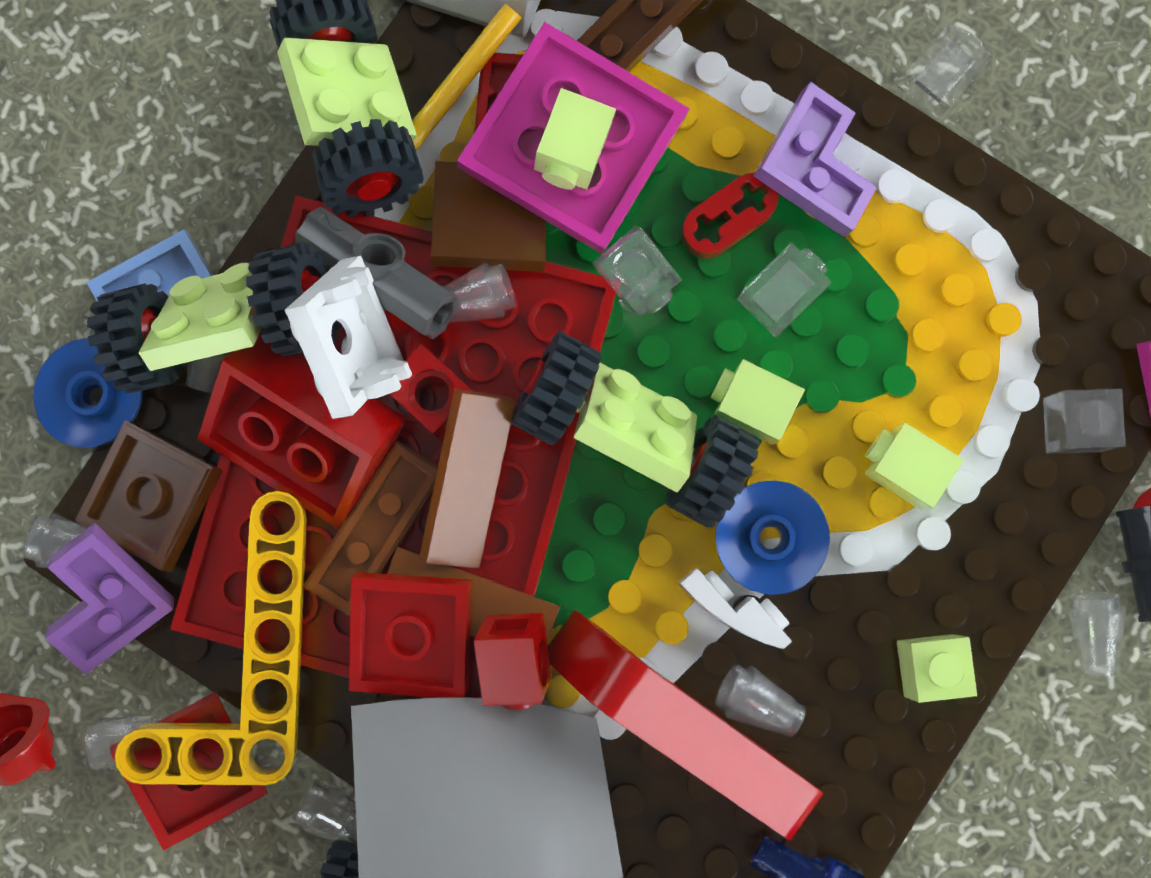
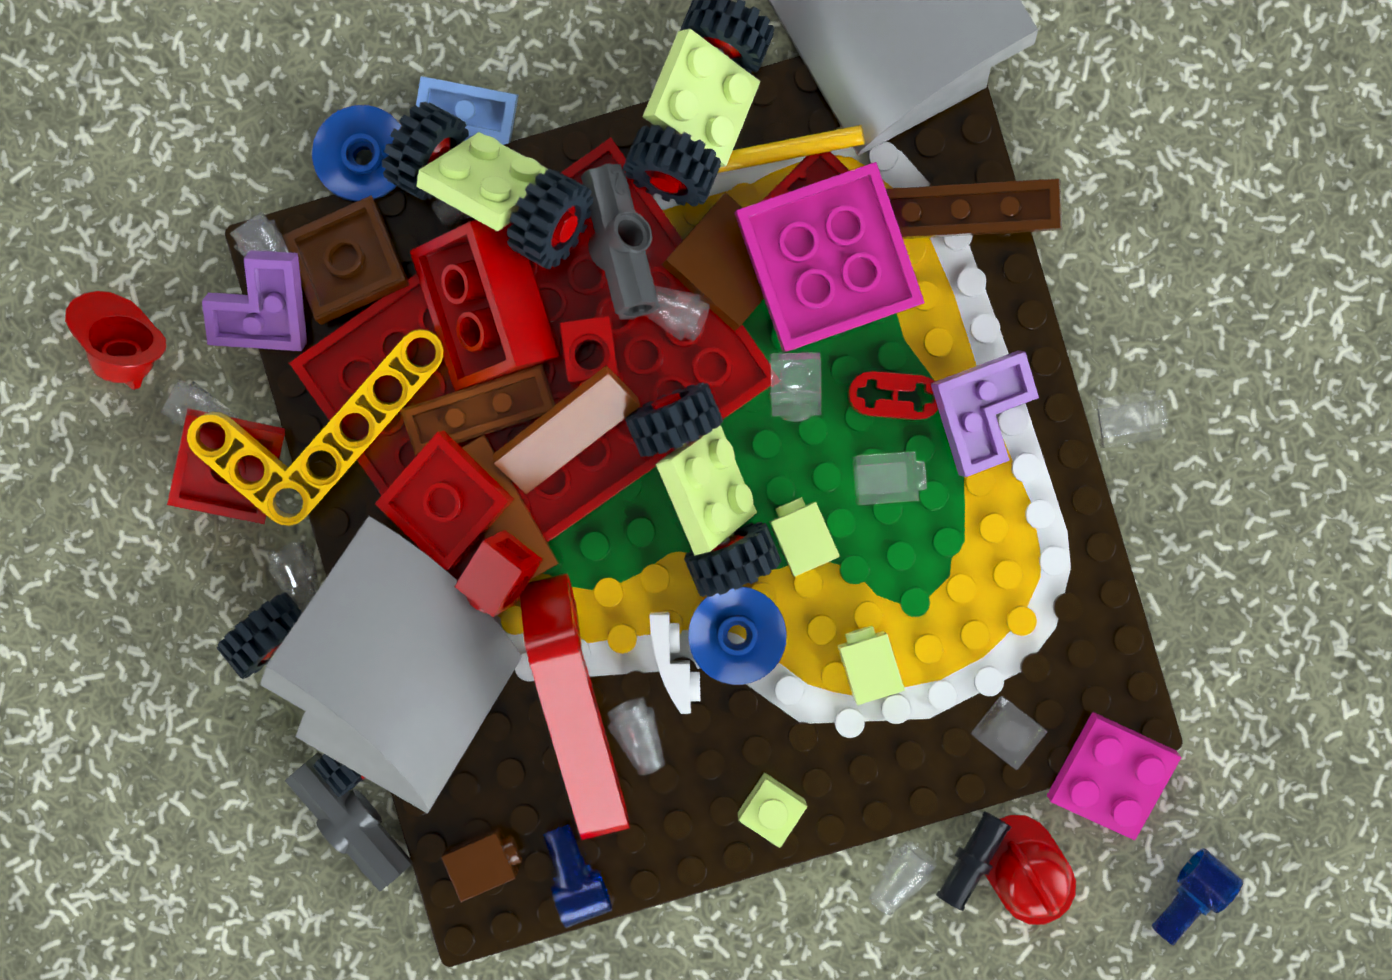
camera: 35 degrees right, 5 degrees up
(369, 356) = (570, 295): white piece -> none
(573, 140) = (822, 265): yellowish green brick -> none

